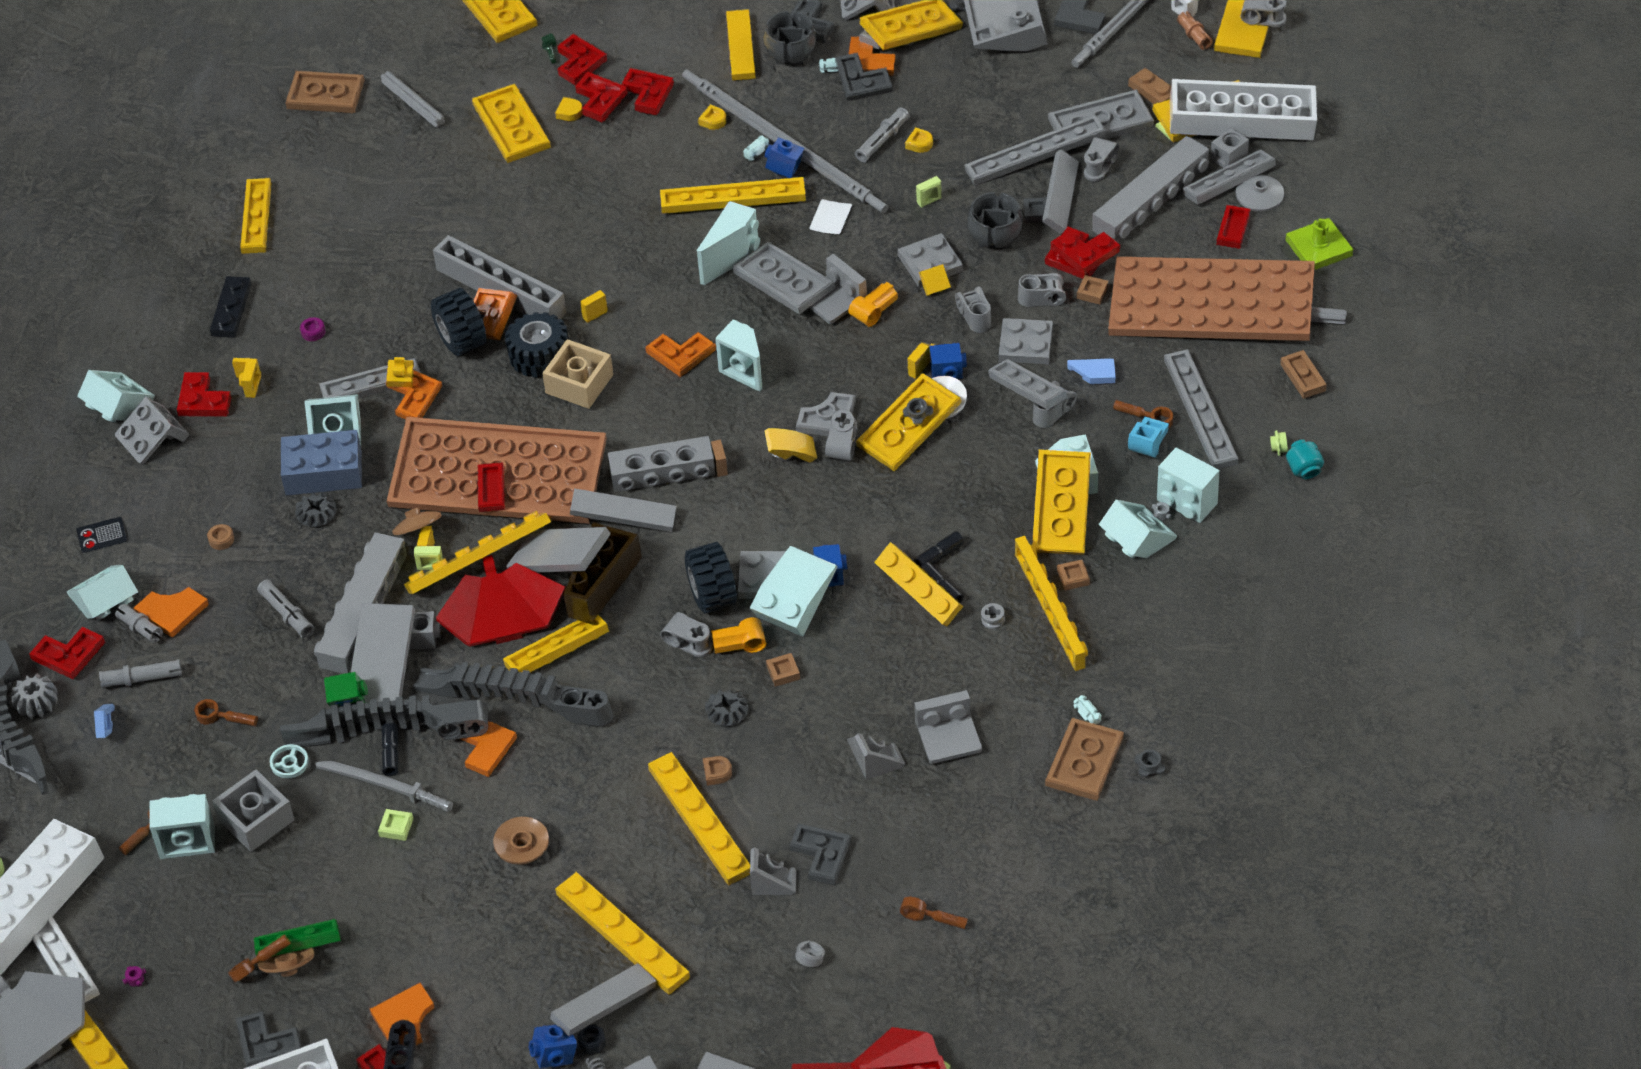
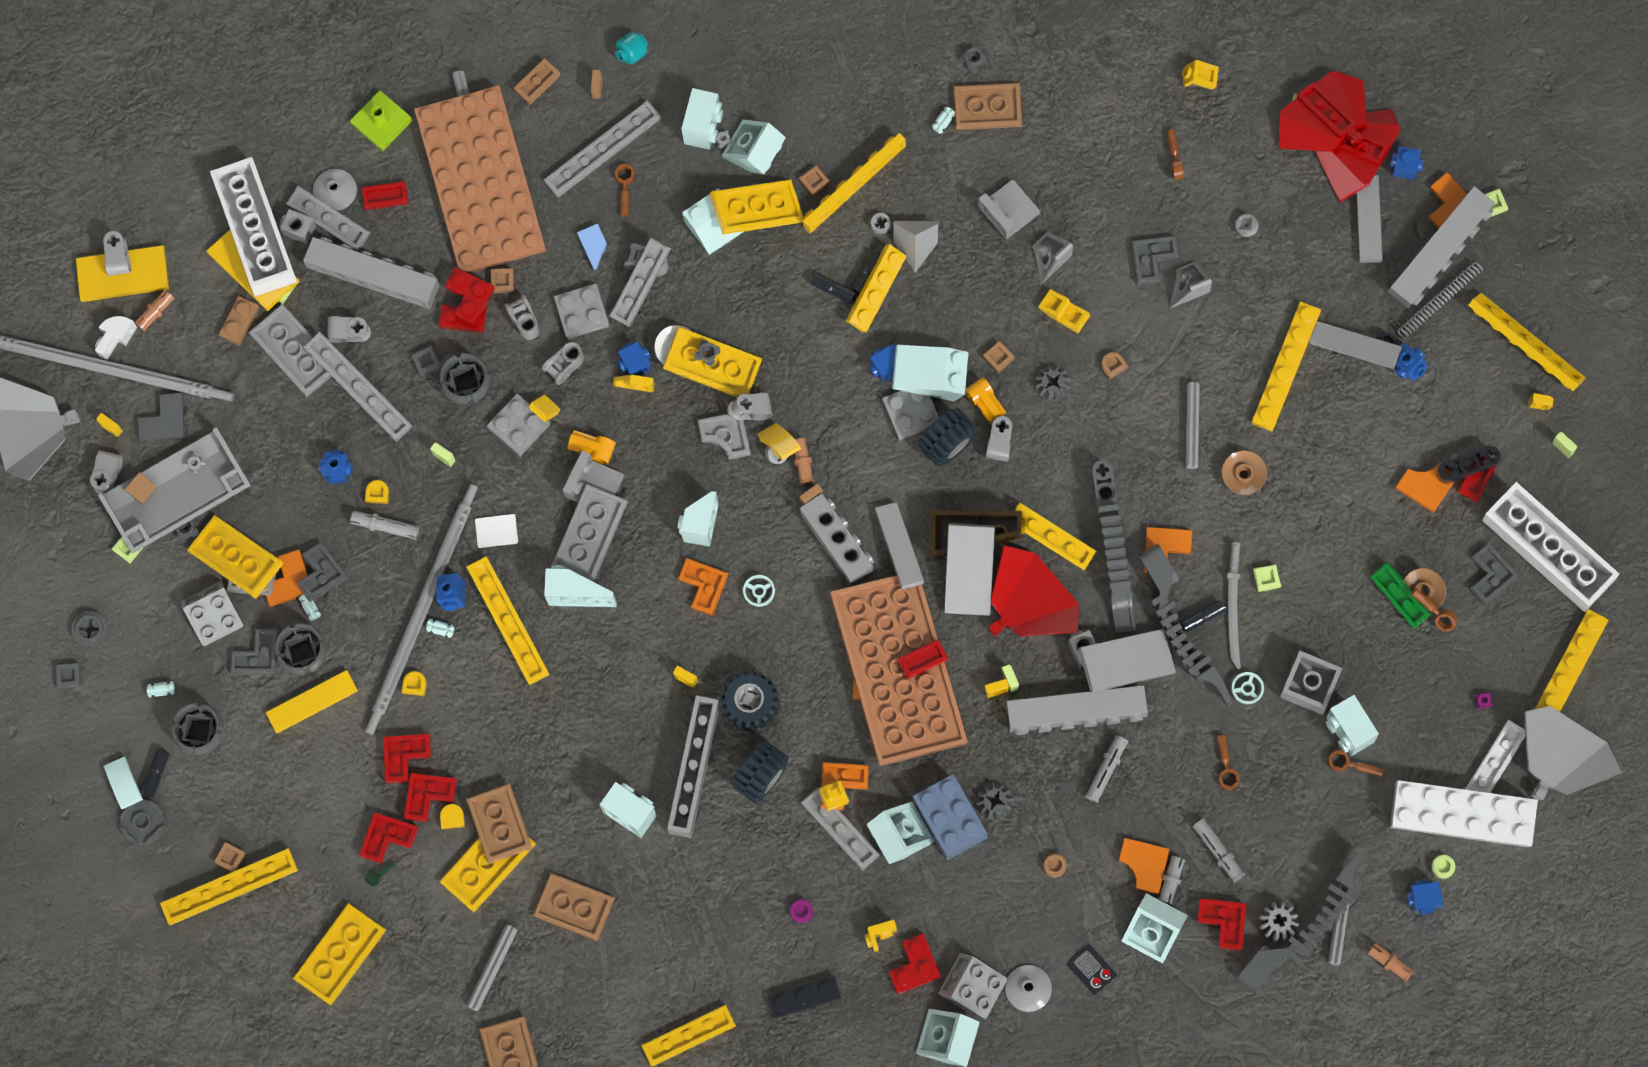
camera: 110 degrees left, 25 degrees up
(103, 721) = (1275, 852): light blue tile -> none
(119, 478) = (1028, 1000): none -> light grey dish
(345, 689) = (1173, 669): green brick -> none
(415, 520) = (989, 700): medium nougat dish -> none
(429, 170) = (574, 907): none -> medium nougat tile
(467, 556) = (991, 639): yellow plate -> none
(488, 218) = (628, 809): none -> light aqua brick
(496, 307) = (721, 754): orange tile -> none
(539, 134) = (499, 823): none -> medium nougat tile
(578, 374) = (771, 648): tan brick -> none
(605, 817) = (1192, 425): none -> light grey axle
(647, 399) = (753, 588): none -> light aqua piece
(700, 818) = (1161, 357): yellow plate -> none
(761, 464) = (803, 463): none -> nougat pin
(806, 744) = (1063, 311): none -> yellow slope
(954, 636) = (915, 240): none -> light grey slope
(959, 111) = (340, 472): none -> blue brick
(1019, 975) = (1200, 74): none -> yellow bracket
(1060, 191) = (400, 346): light grey tile -> none
(1147, 436) = (655, 172): medium azure brick -> none
(1275, 419) = (596, 85): none -> medium nougat tile
(1279, 443) = (618, 75): yellowish green plate -> none

